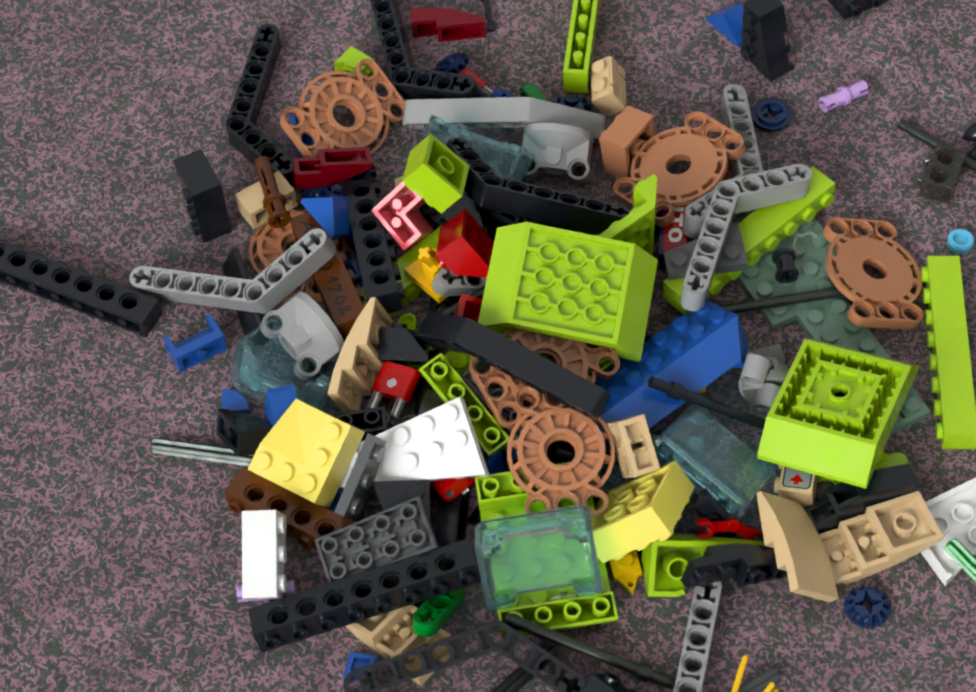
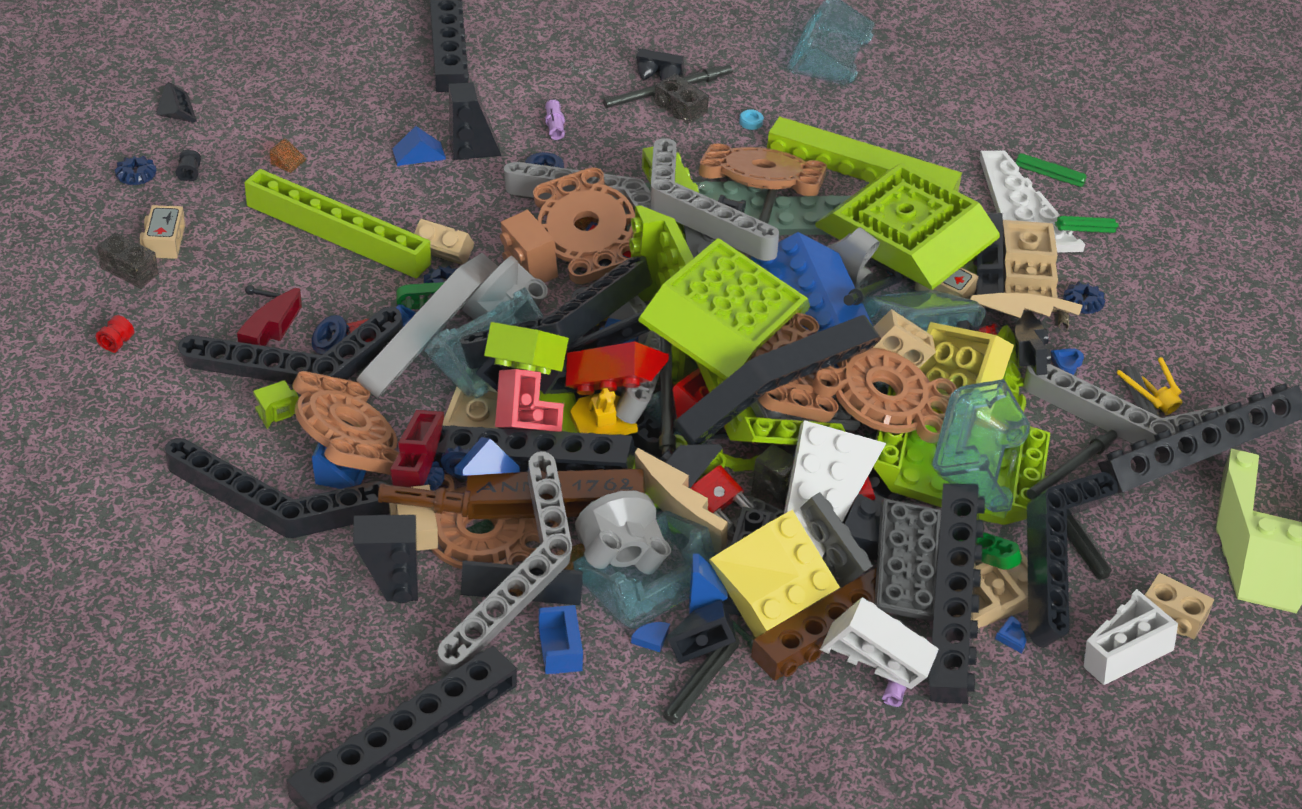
camera: 75 degrees left, 10 degrees down
(758, 615) = (1067, 359): none -> blue tile

